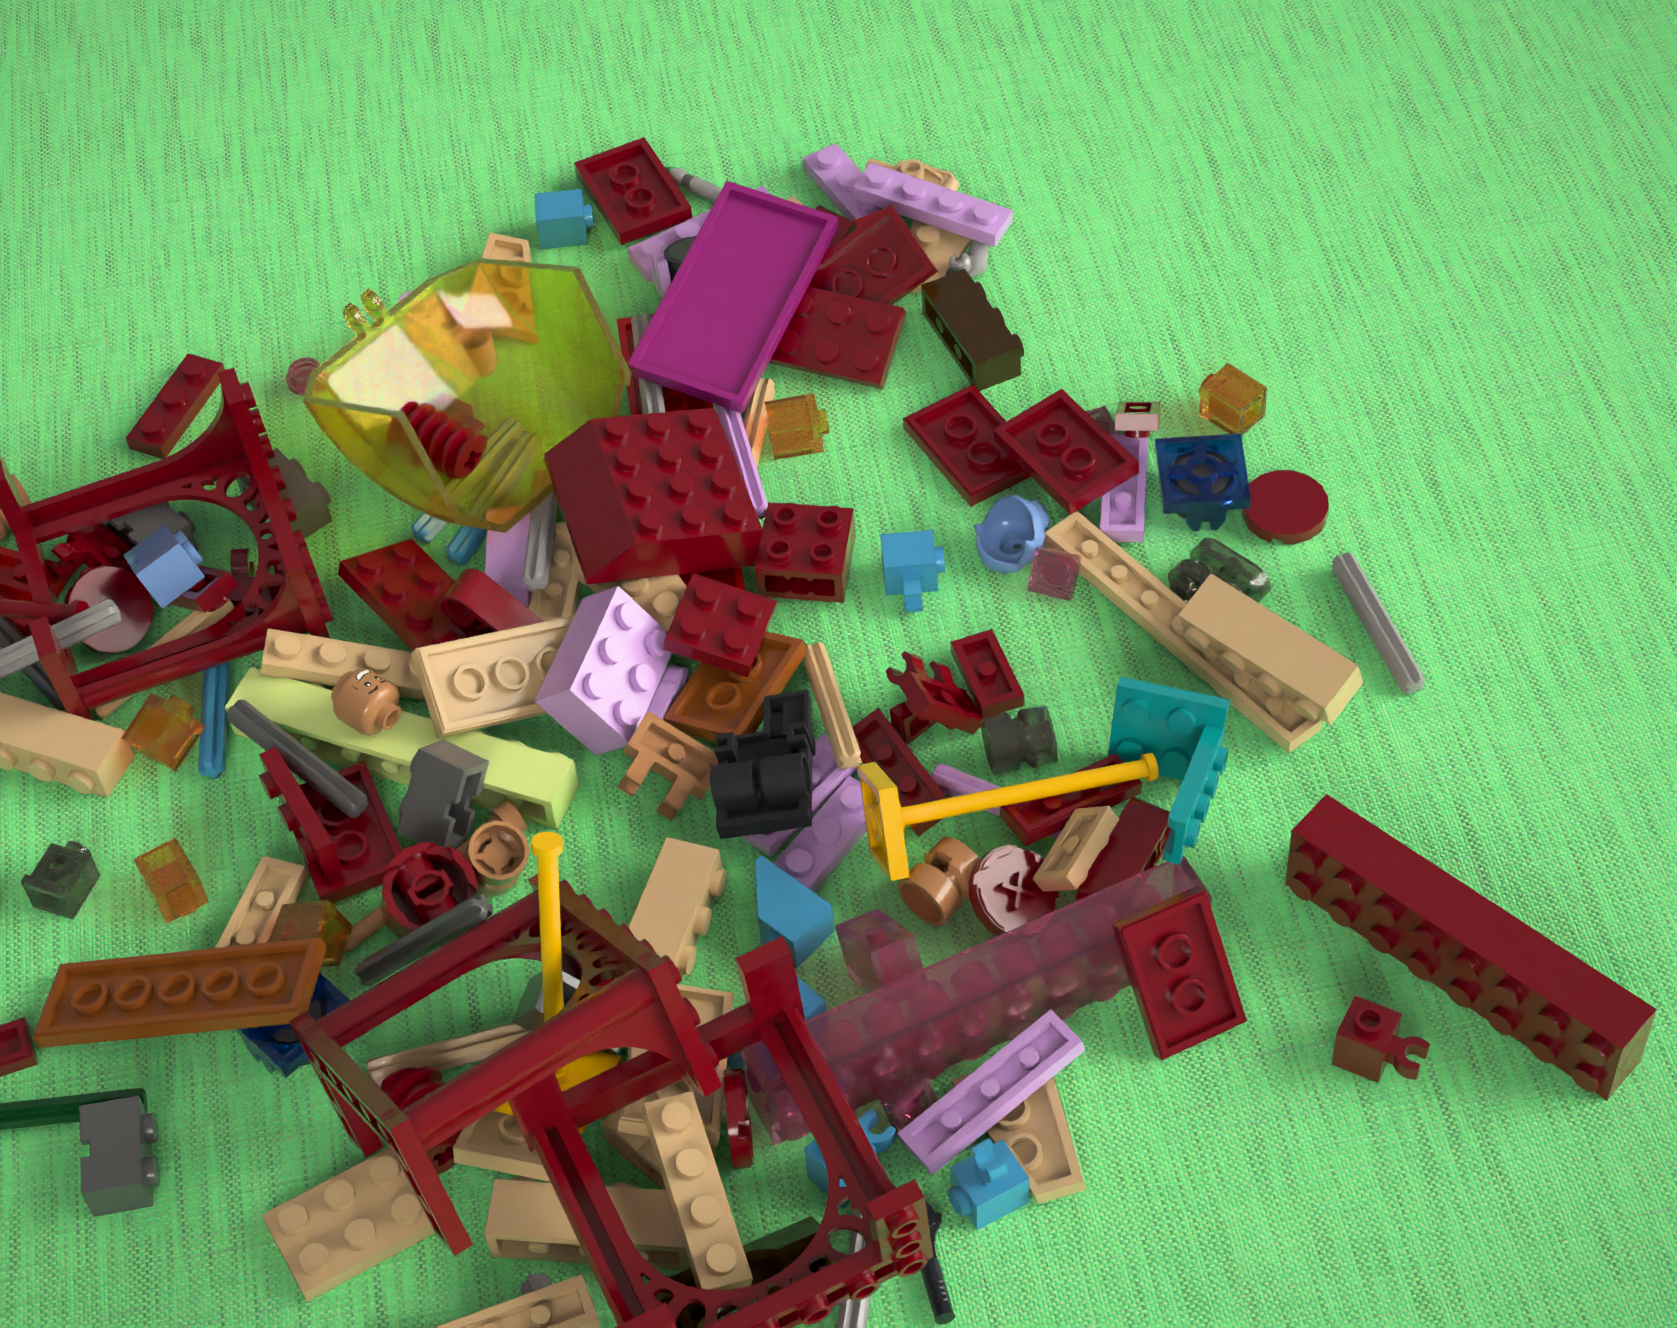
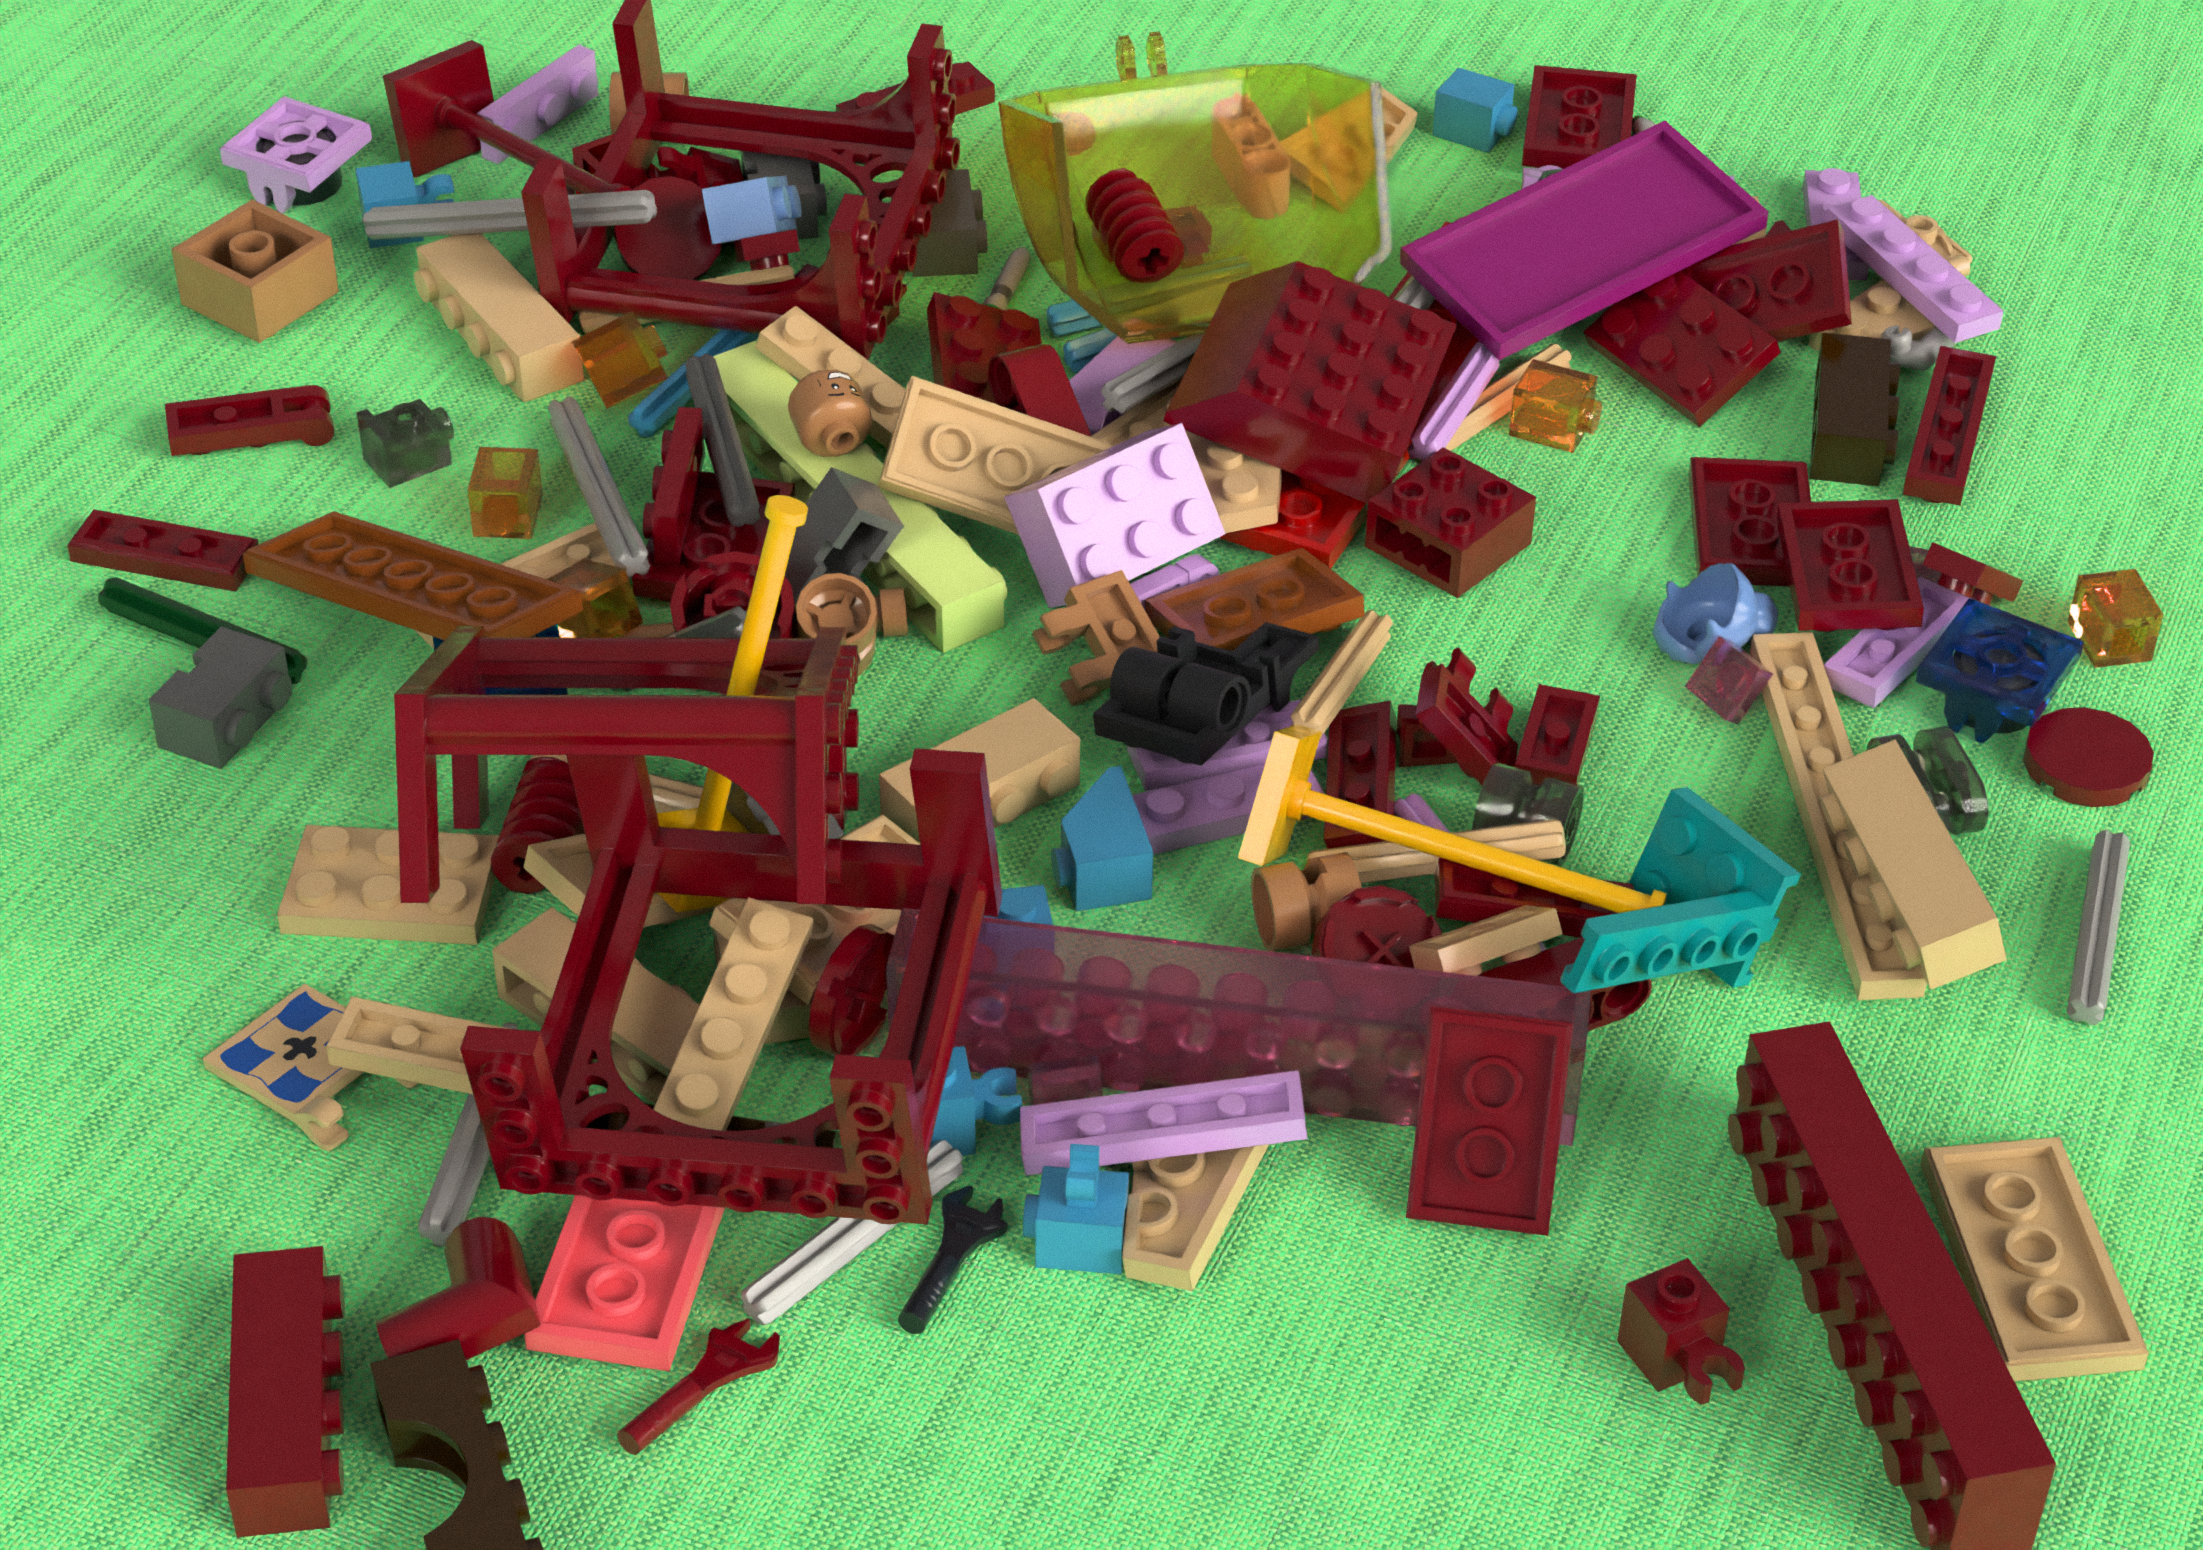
camera: 30 degrees right, 10 degrees down
(237, 841) = (598, 487): none -> light grey axle
(362, 519) = (1009, 279): none -> light grey piece
(720, 625) = (1279, 533): dark red plate -> none
(877, 950) = (1161, 907): clear pink brick -> none
(911, 565) = (1563, 594): dark azure brick -> none
(1035, 310) = (1949, 426): none -> dark red plate
(1038, 767) = (1392, 861): none -> tan axle
(1505, 863) = (2033, 1258): none -> tan tile

